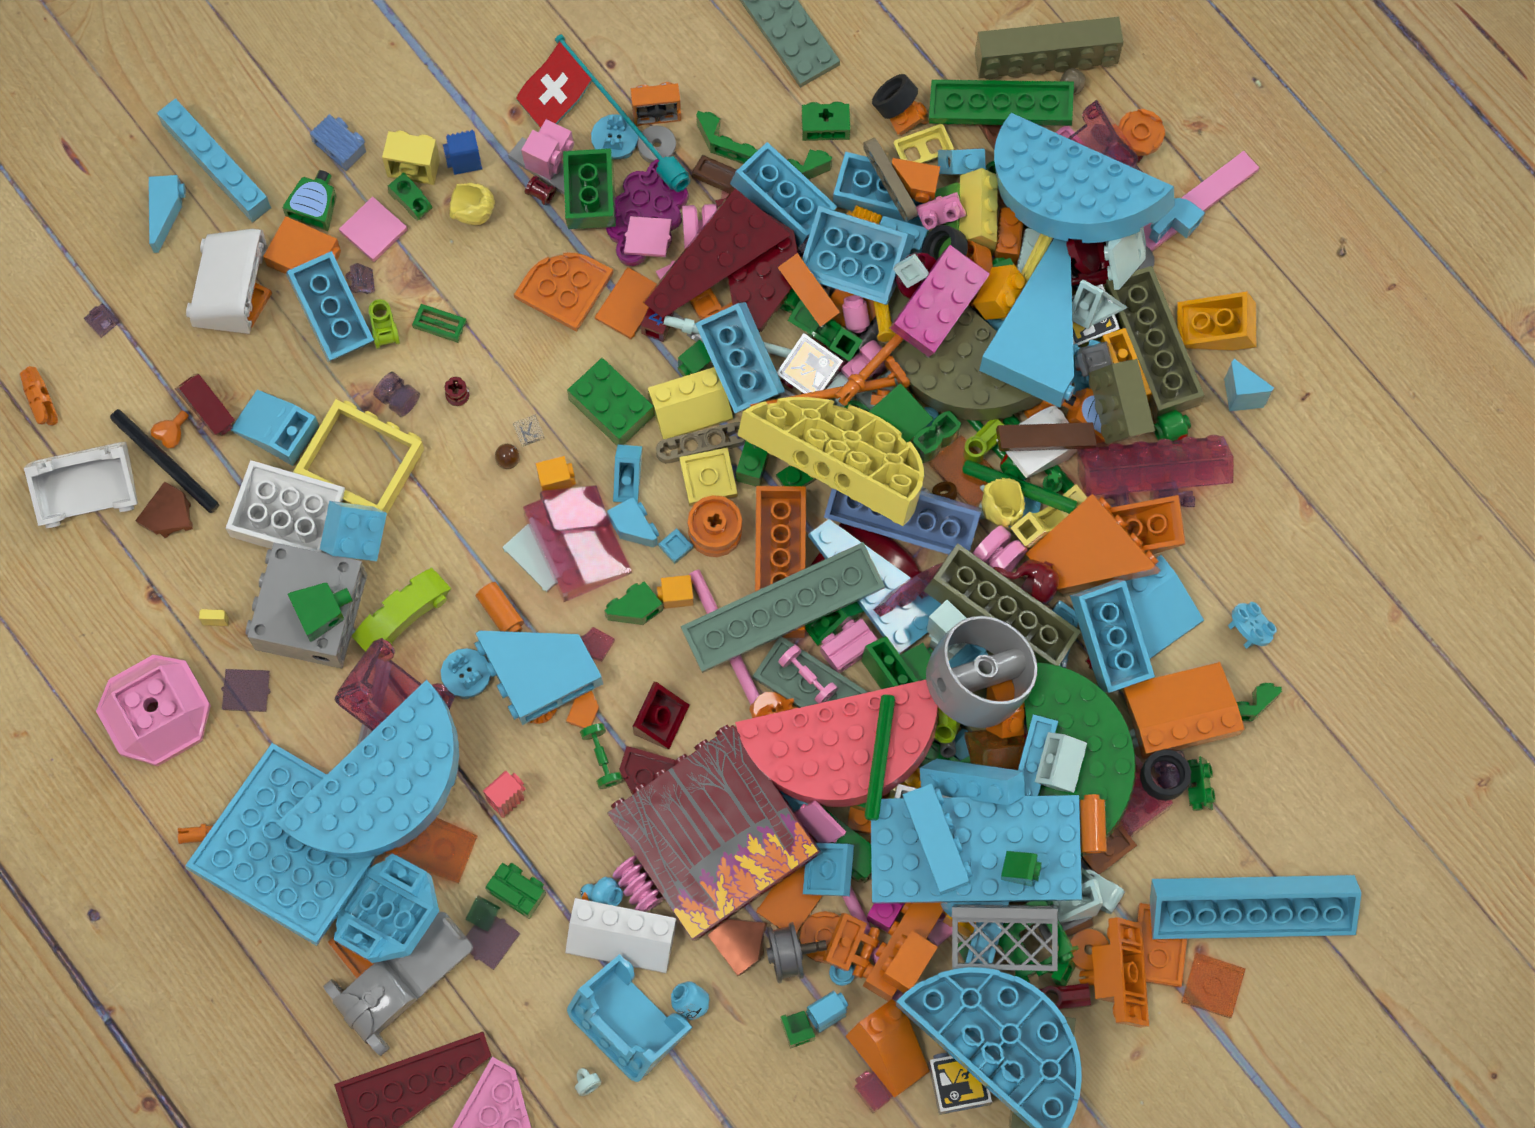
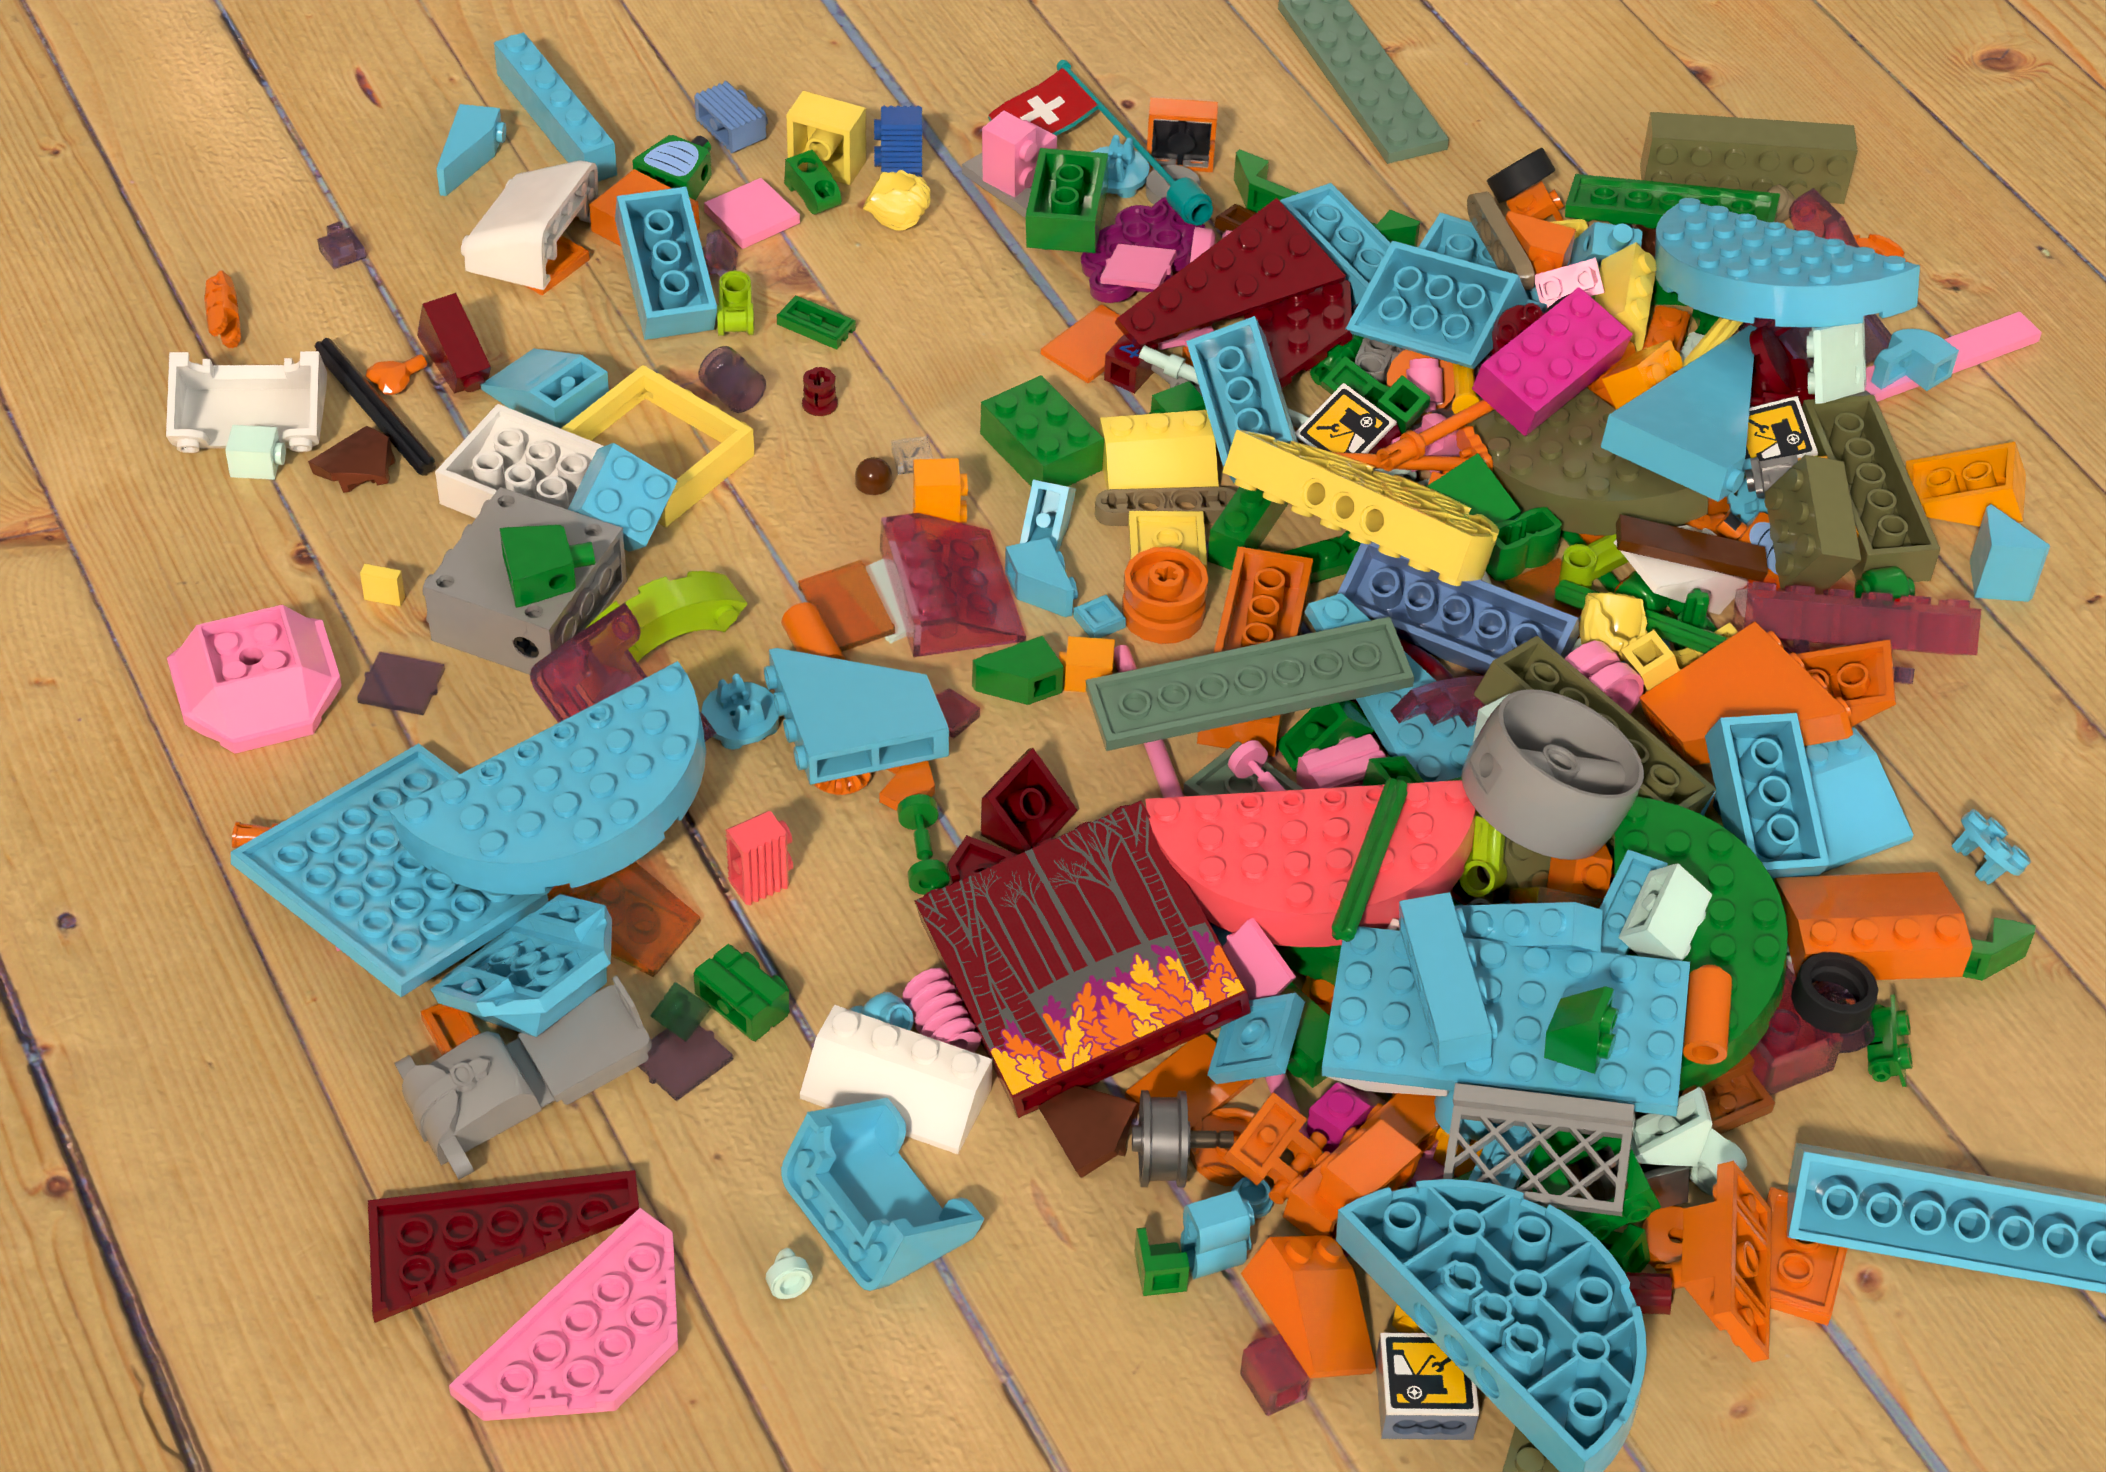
camera: 10 degrees right, 25 degrees down
(98, 521) = (254, 452): none -> light aqua brick
(513, 570) = (848, 605): none -> clear orange piece
(540, 190) = (992, 201): dark red bush -> none
(564, 287) = (1005, 308): orange plate -> none
(574, 508) = (958, 537): clear pink piece -> none
(690, 1000) = (989, 1184): medium azure head -> none
(809, 290) = (1360, 341): orange tile -> none
(814, 126) = (1417, 192): green brick -> none
(911, 270) = (1515, 312): light aqua plate -> none
(1041, 579) = (1666, 714): dark red hair -> none
(1093, 305) = (1783, 410): light aqua slope -> none
(1213, 985) = (1885, 1329): clear orange tile -> none

